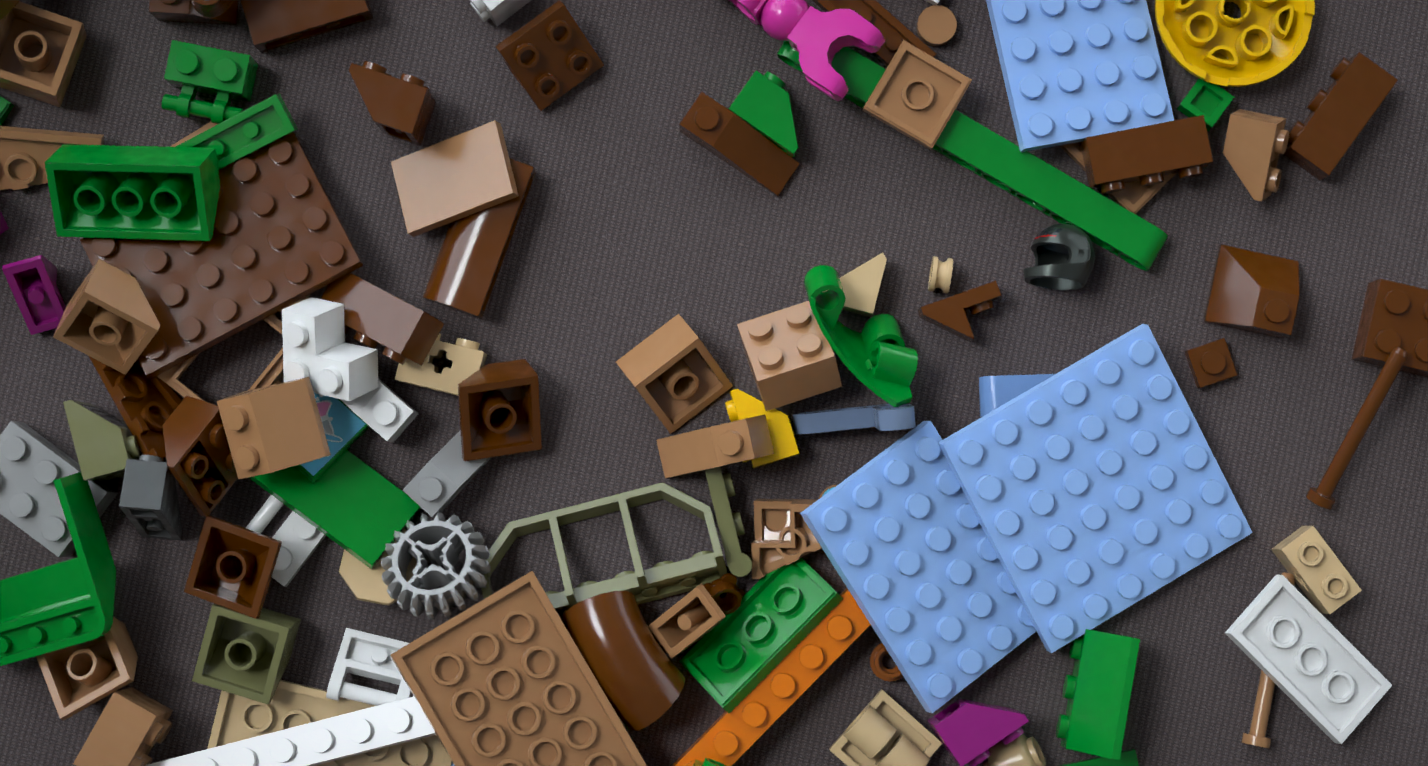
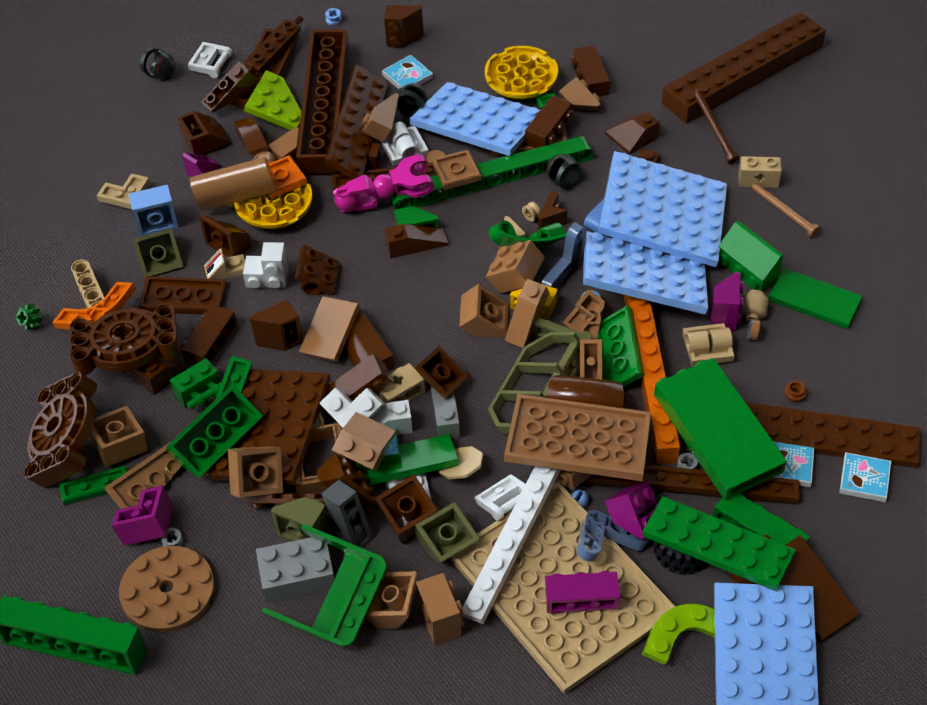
camera: 45 degrees left, 35 degrees down
(36, 292) = (210, 505): magenta slope -> none
(449, 540) = (480, 433): light grey gear -> none
(877, 667) = (673, 322): dark orange plate -> none
(1308, 659) = (794, 193): white plate -> none

